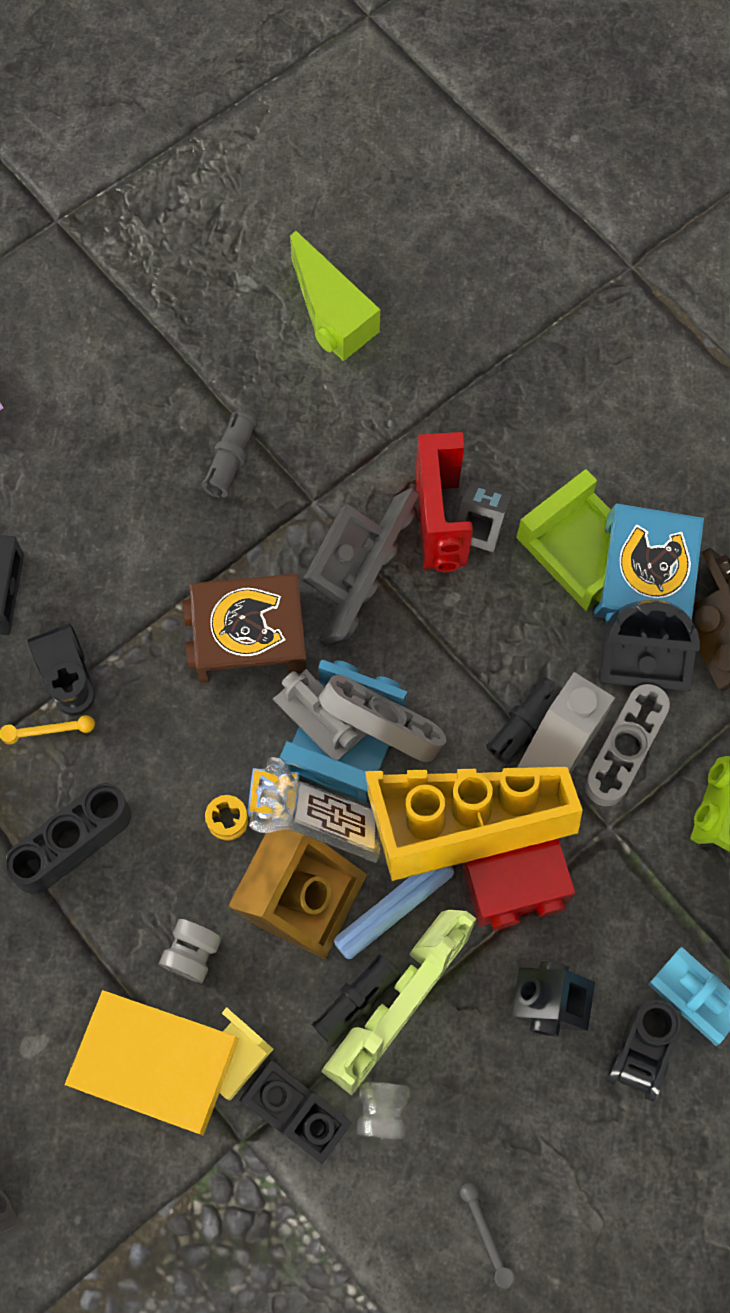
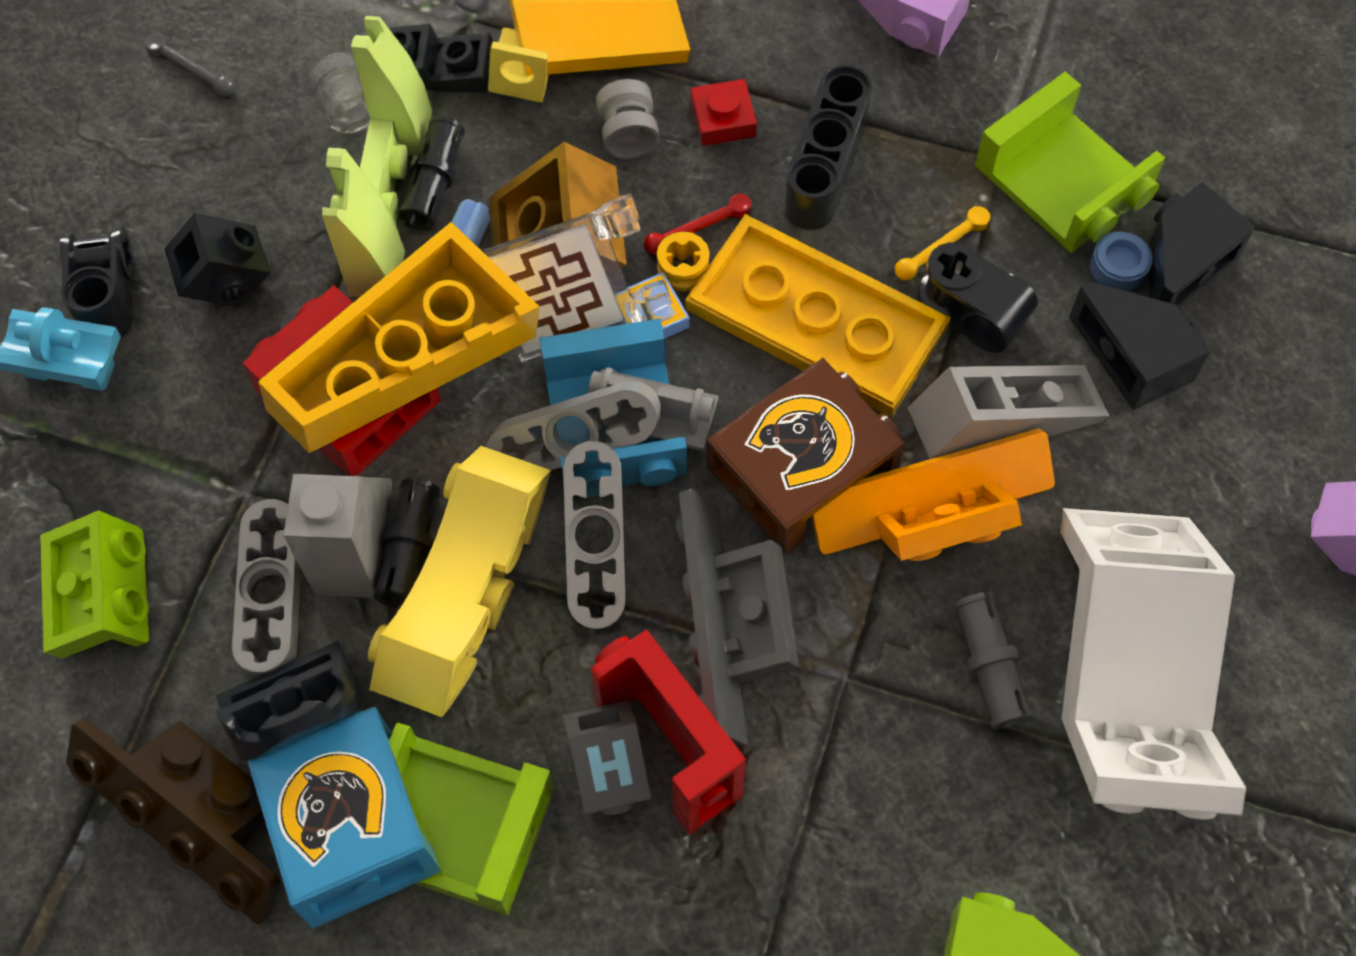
camera: 150 degrees right, 5 degrees down
(106, 583) = (996, 402): none -> light grey slope
(115, 925) = (723, 112): none -> red plate
(153, 388) = (1148, 664): none -> white bracket
(159, 843) = (738, 206): none -> red hinge
(166, 729) = (816, 307): none -> yellow tile
(184, 546) = (939, 499): none -> light orange bracket
(410, 660) = (577, 487): none -> light grey beam
(483, 682) = (462, 586): none -> light yellow brick

